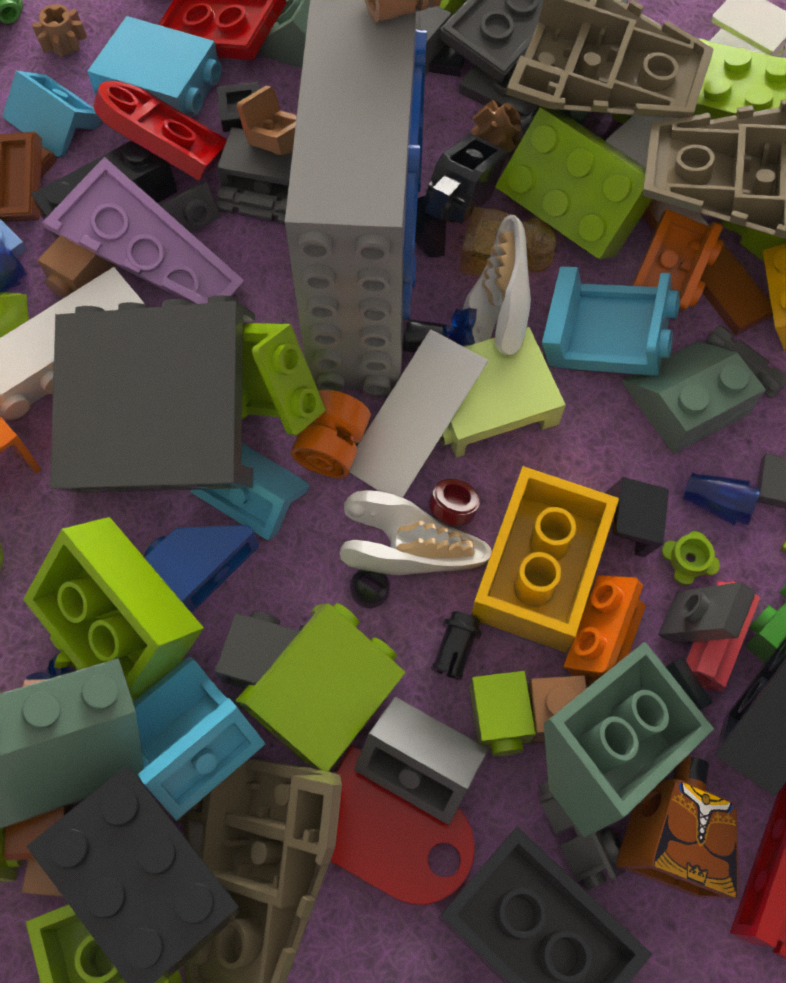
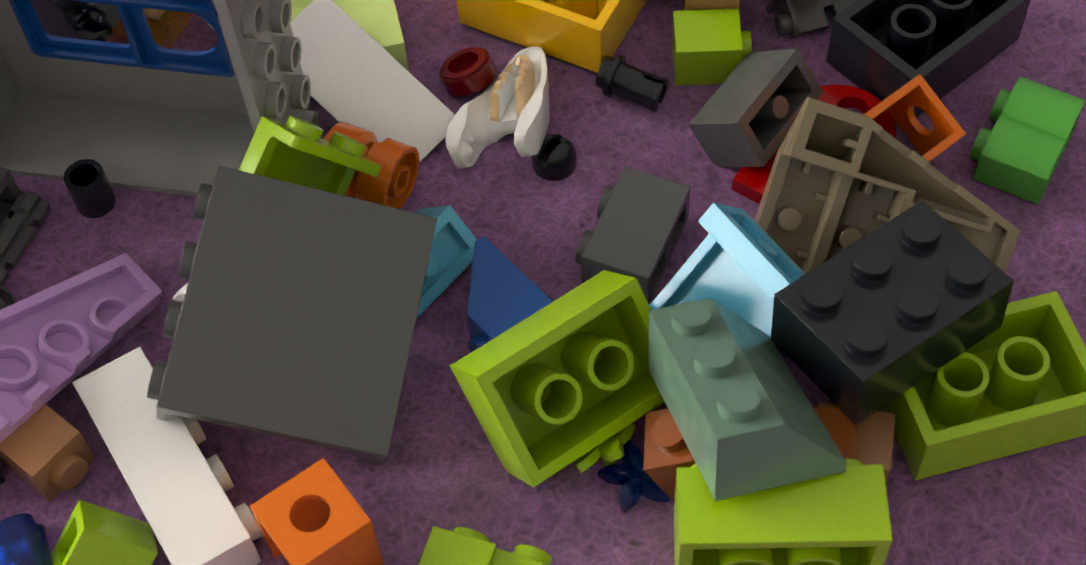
camera: 80 degrees left, 10 degrees down
(323, 686) = (671, 175): lime panel -> none
(366, 917) = (901, 107): none -> orange piece

